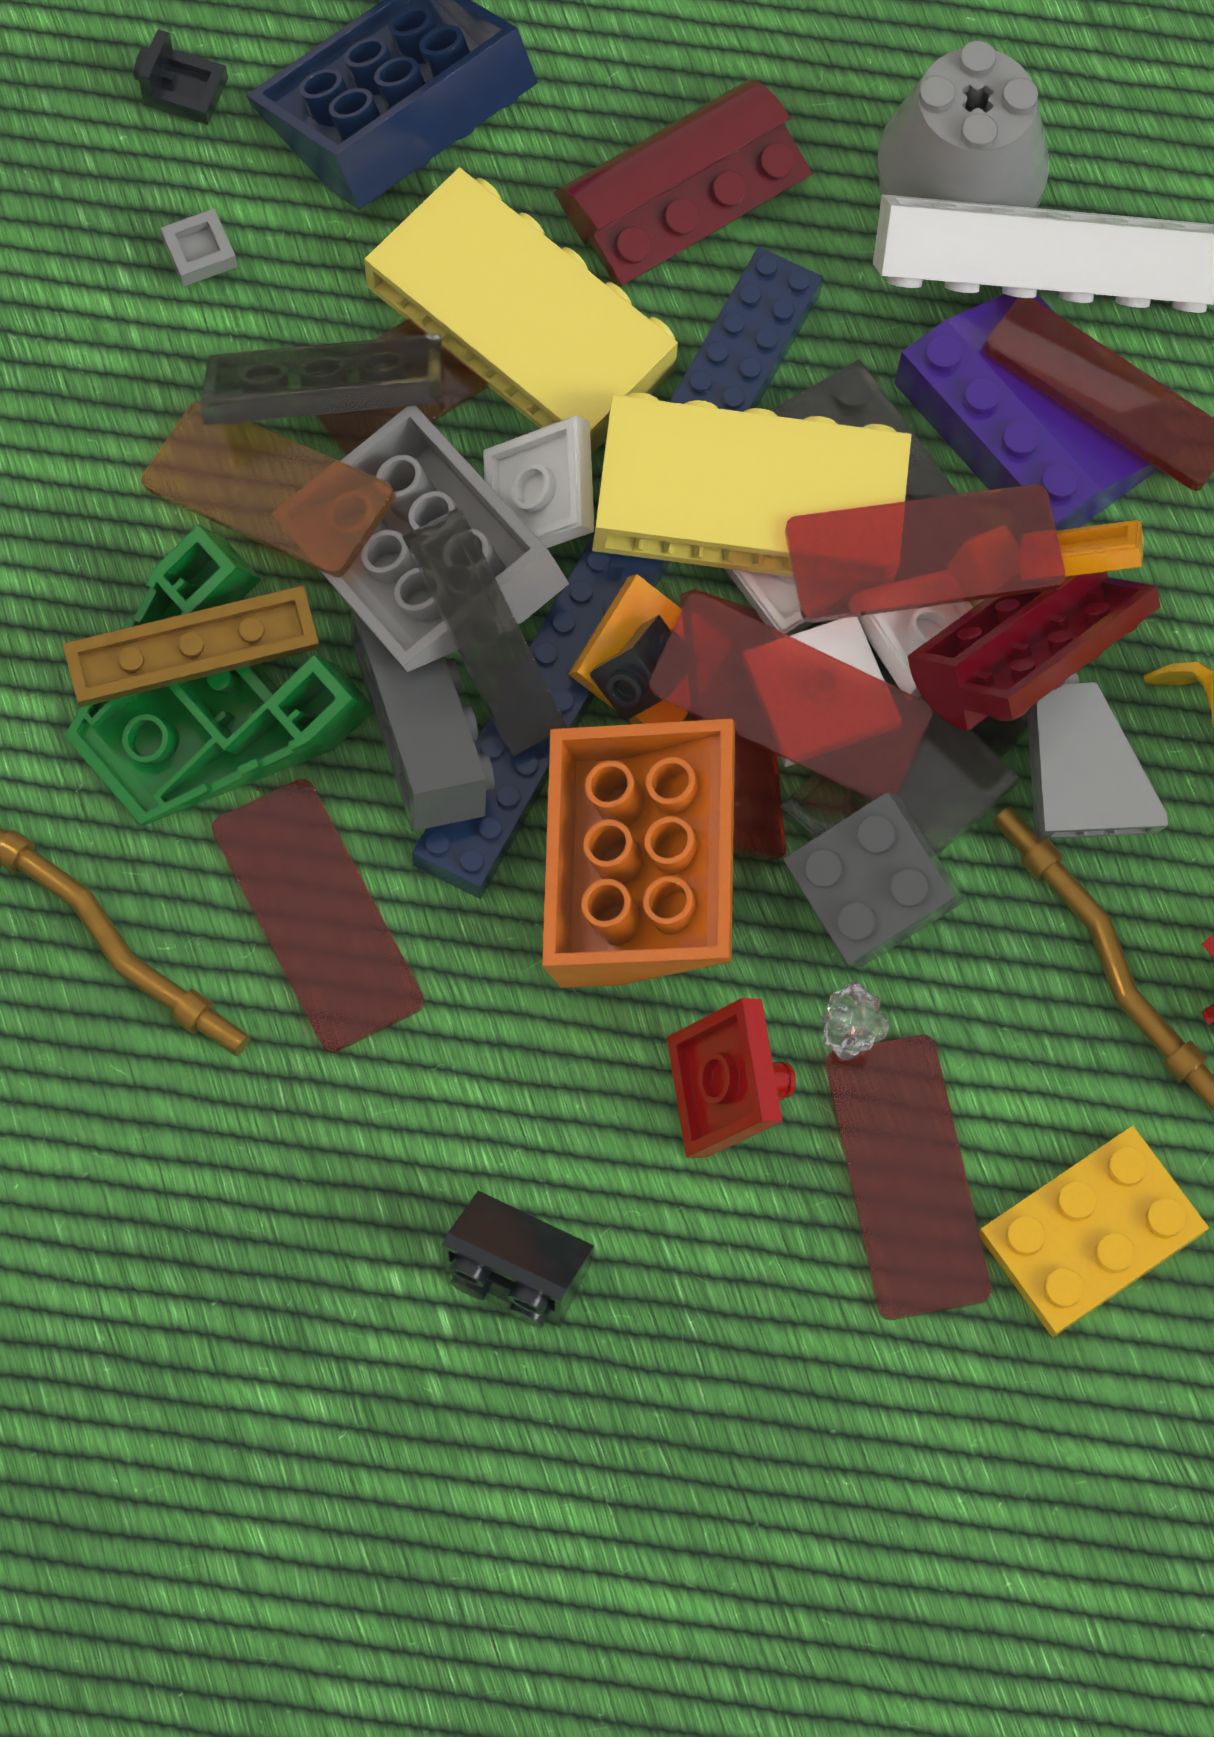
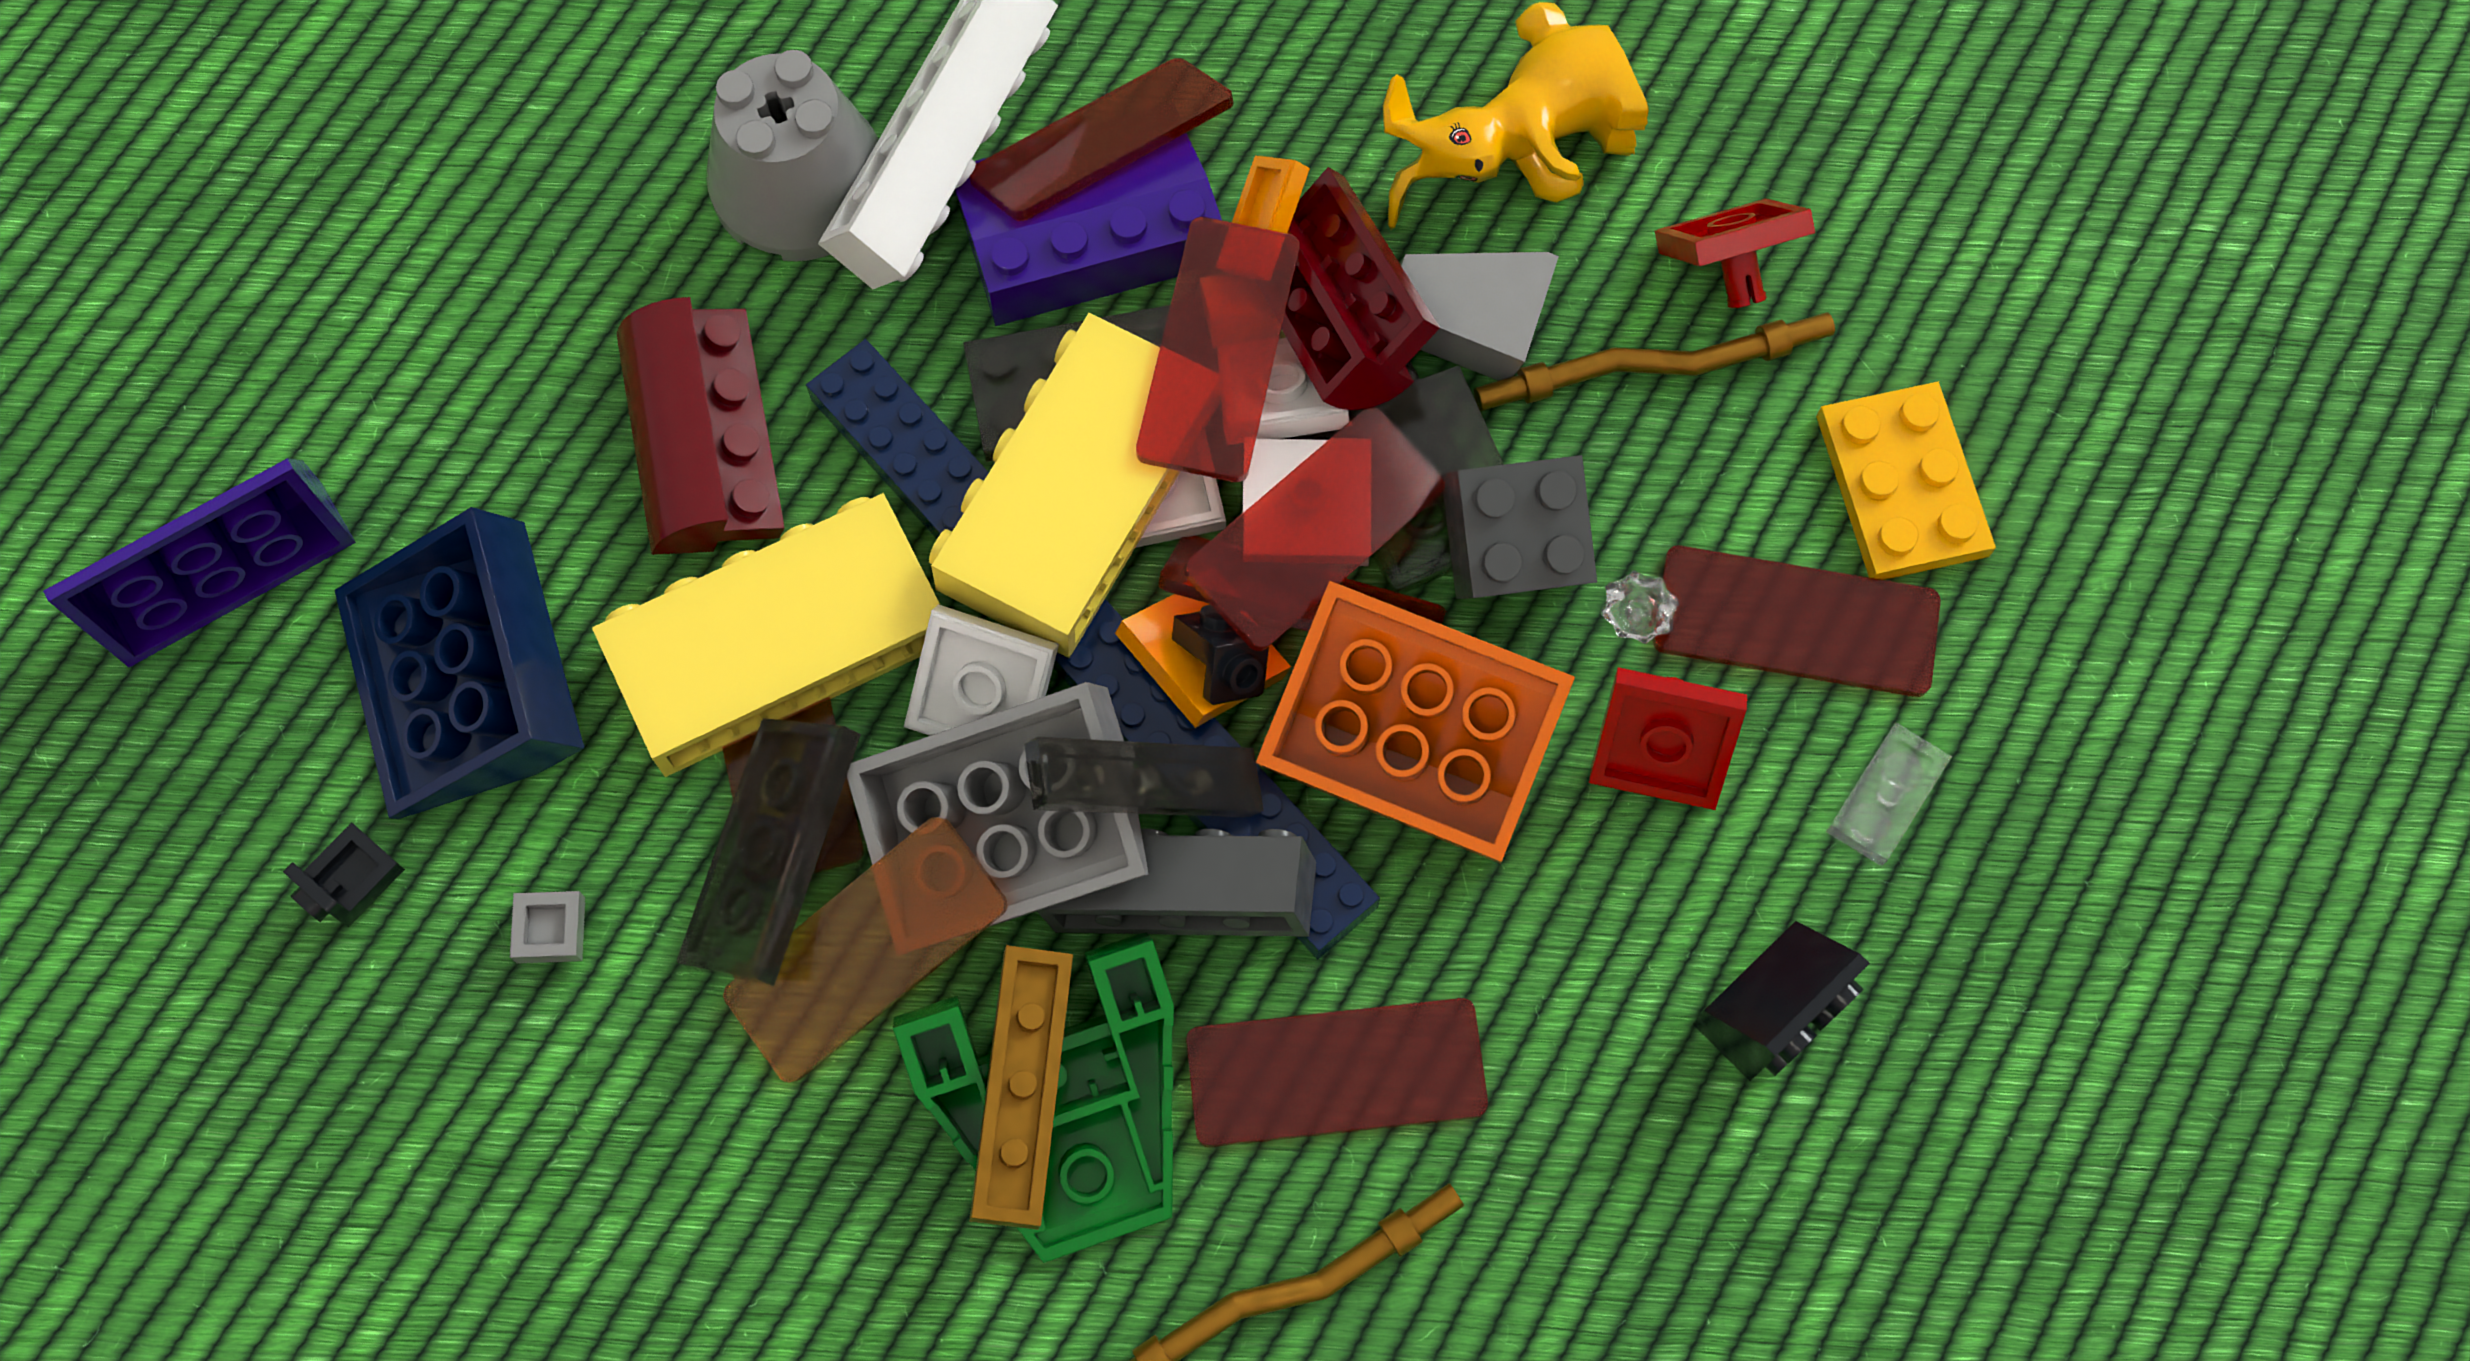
camera: 65 degrees left, 0 degrees up
(763, 1305) = (1888, 794): none -> clear plate

